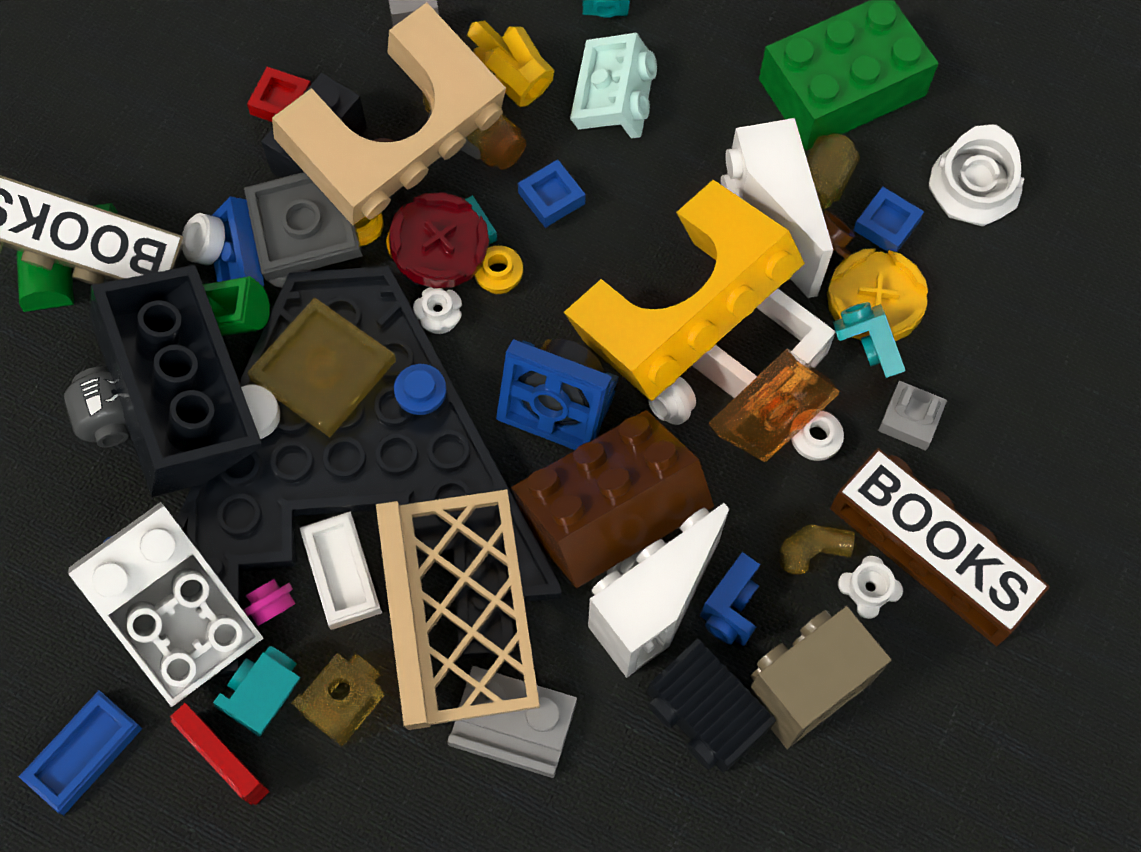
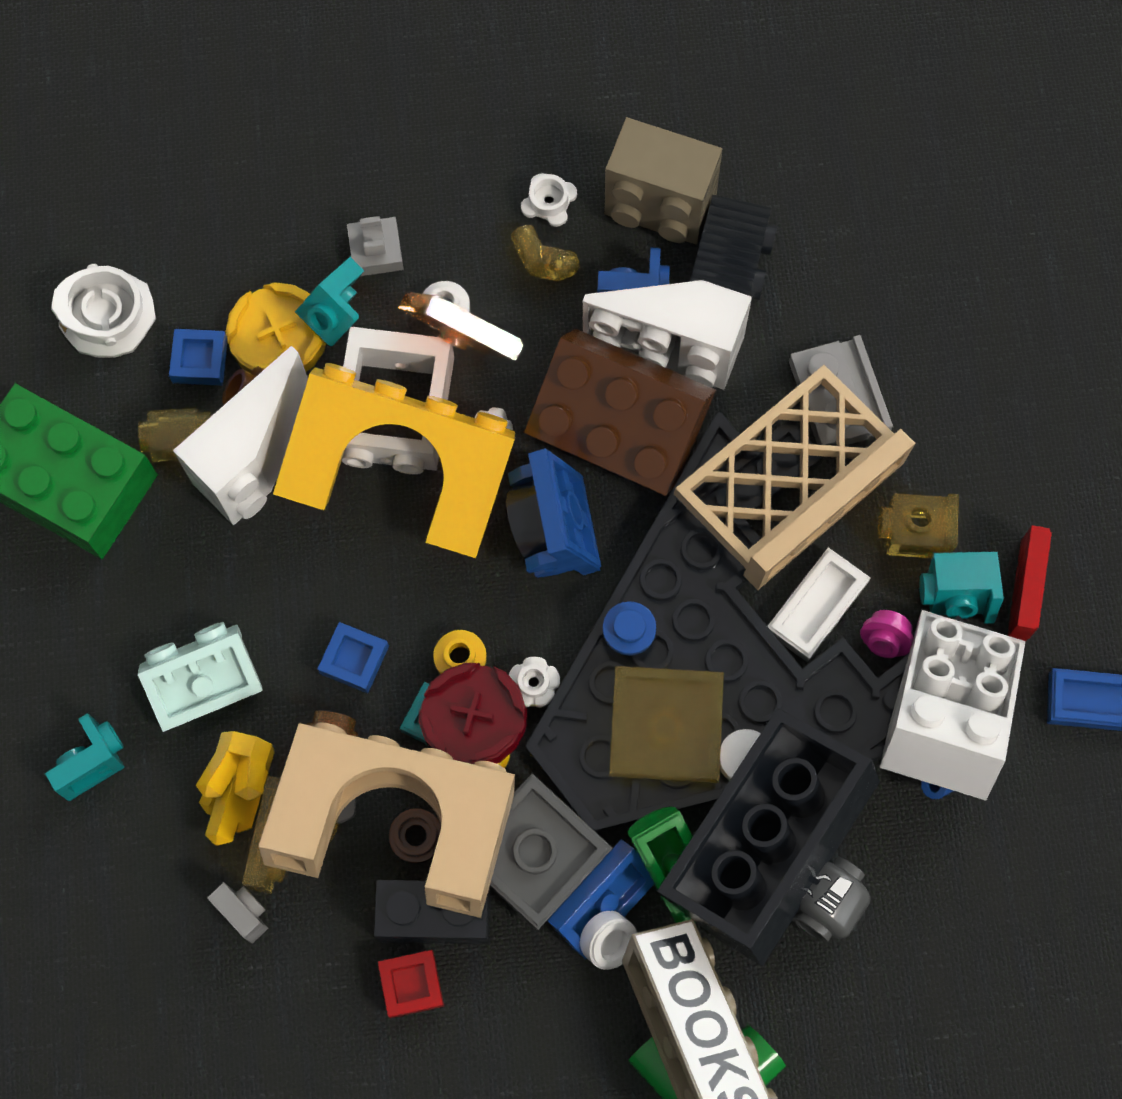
camera: 120 degrees left, 5 degrees up
(939, 546) = (483, 165): brick -> none

